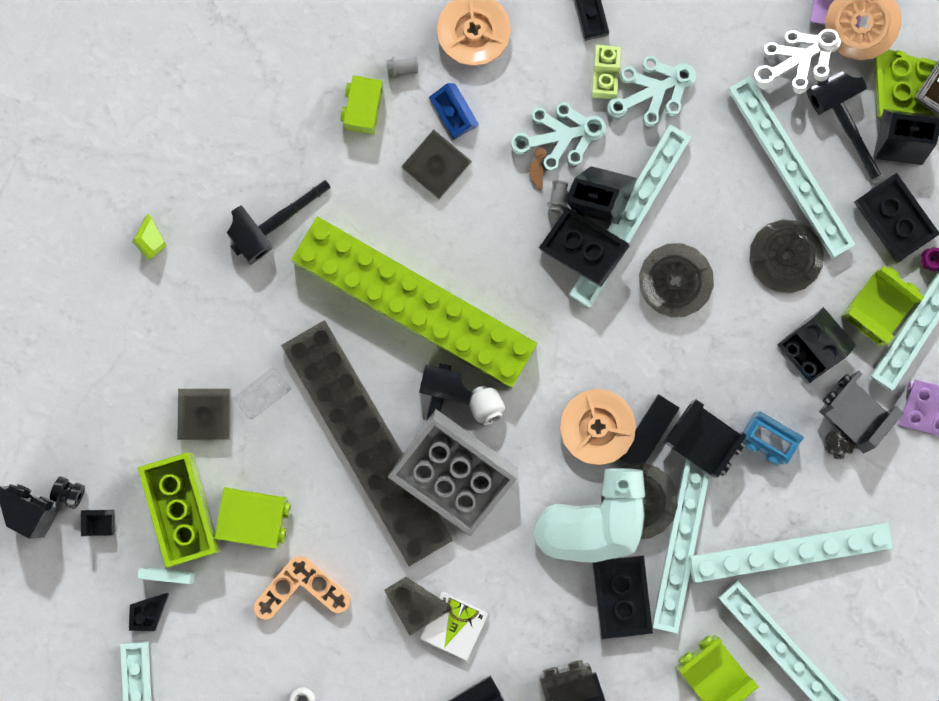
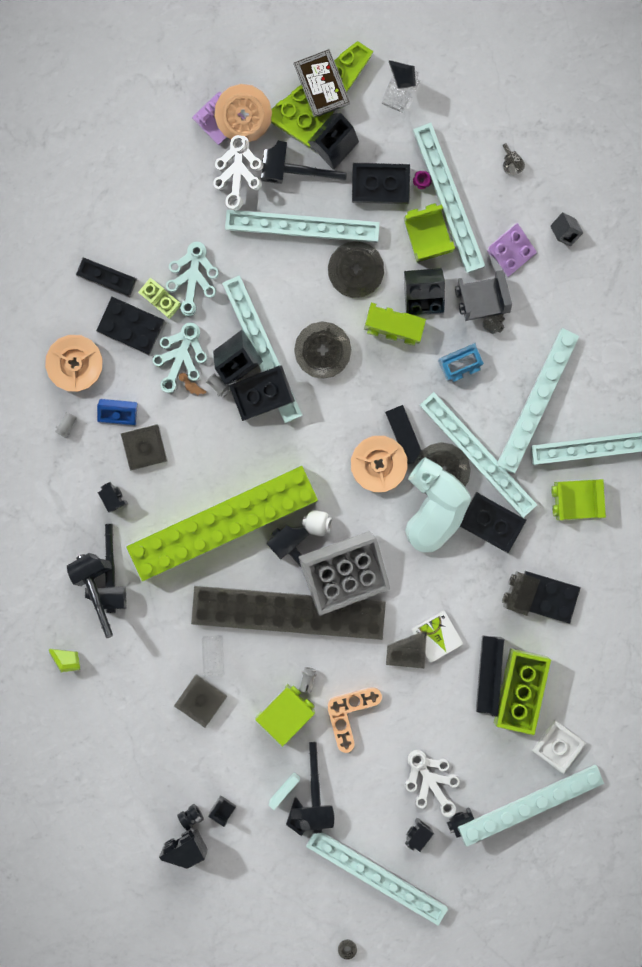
camera: 45 degrees left, 5 degrees up
(162, 632) = (317, 816): none -> black piece
(179, 509) = (249, 756): lime brick -> none
(257, 192) = (83, 572): none -> black piece
(307, 515) = (307, 680): none -> light grey pin
(358, 166) = (111, 497): none -> black brick
(363, 104) = (73, 467): lime brick -> none
(555, 61) = (130, 325): none -> black plate
(705, 440) = (433, 404): black panel -> none
(758, 336) = (394, 324): none -> lime wedge

